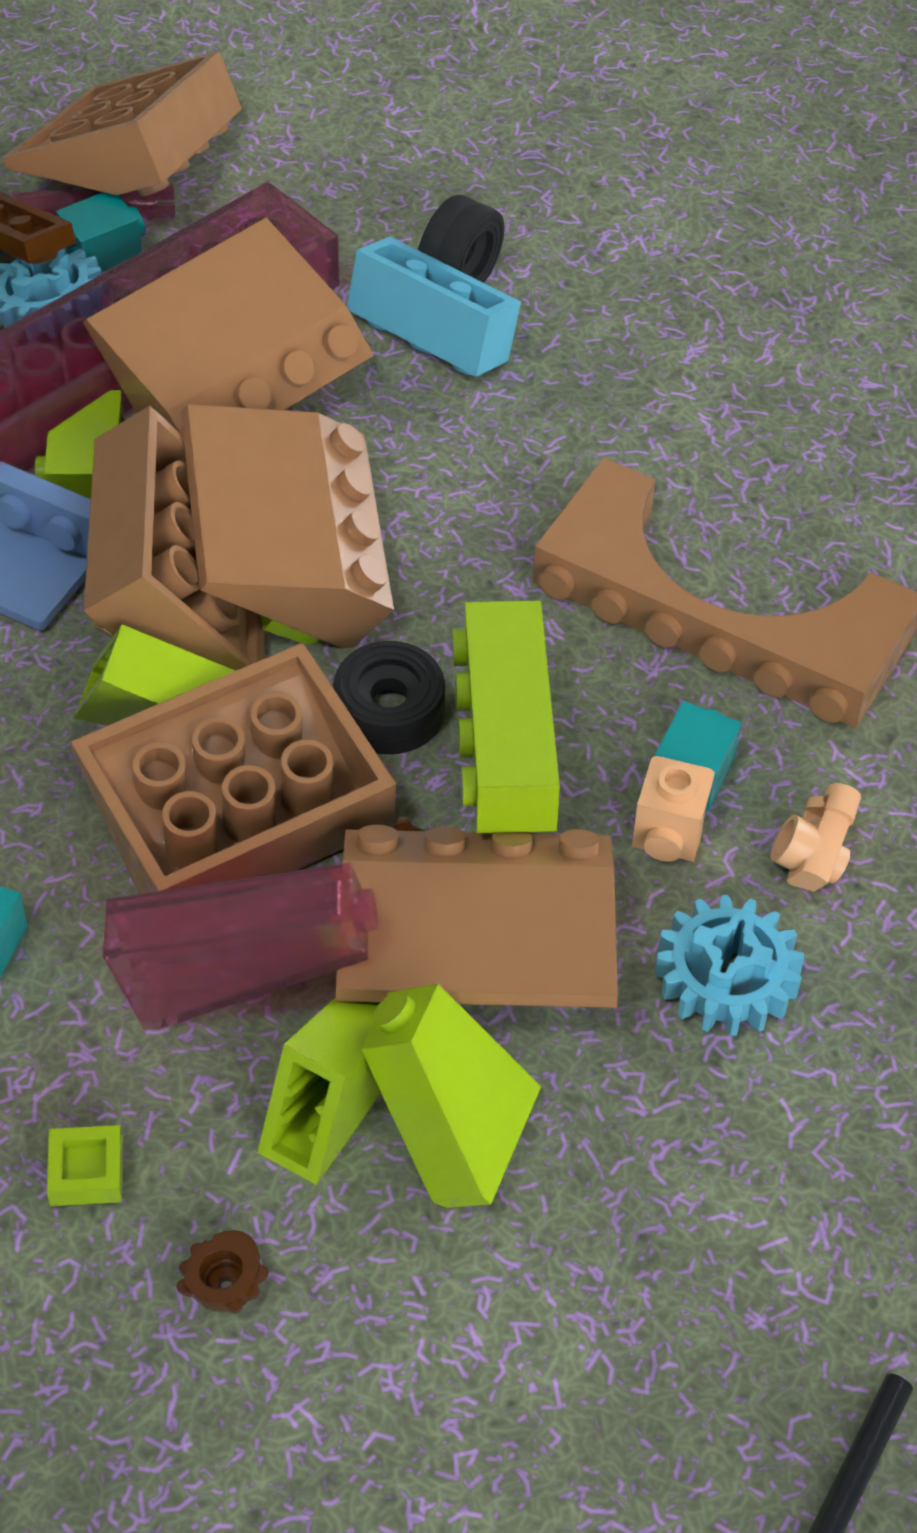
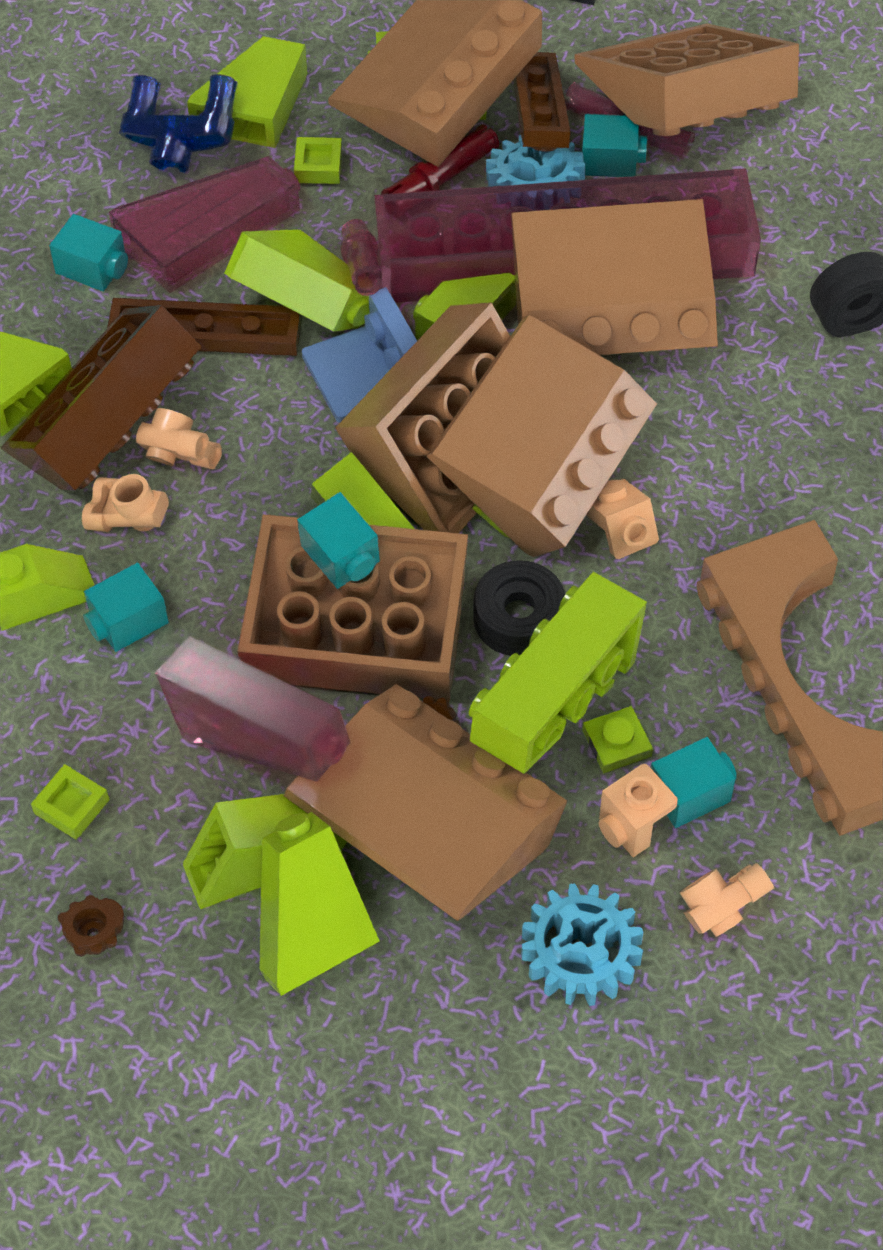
camera: 40 degrees right, 5 degrees up
(187, 715) = (339, 541): none -> teal brick
(419, 555) = (625, 517): none -> light nougat bracket
(433, 306) = (796, 331): medium azure brick -> none
(589, 762) = (617, 739): none -> lime plate

